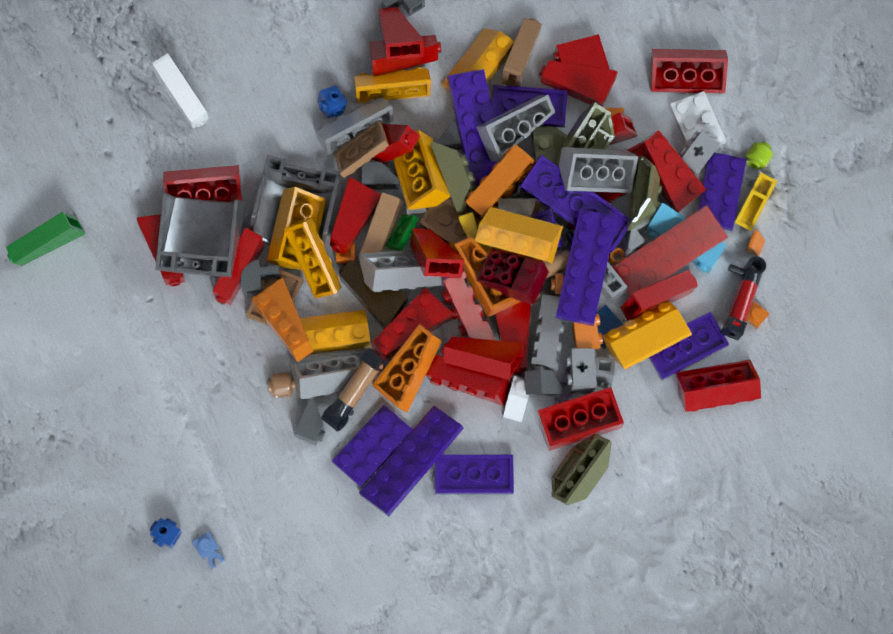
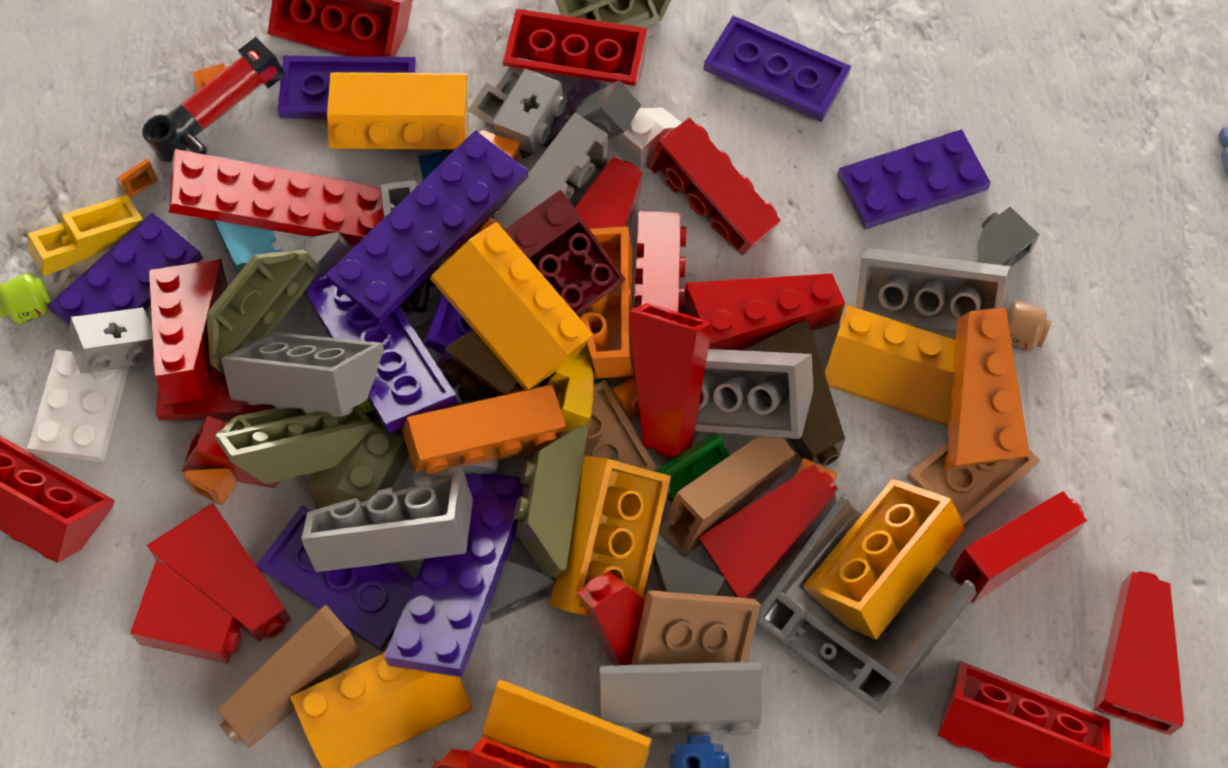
camera: 150 degrees left, 10 degrees down
(199, 236) = (1076, 620): flat silver windscreen -> none
(254, 274) = (1006, 501): dark grey brick -> none
(313, 258) = (880, 476): light orange slope -> none
(338, 413) = (873, 243): piece -> none
(408, 368) = (814, 232): orange wedge -> none
(411, 460) = (864, 124): dark purple plate -> none
(484, 355) = (671, 178): red slope -> none
(656, 294) = (356, 157): red slope -> none

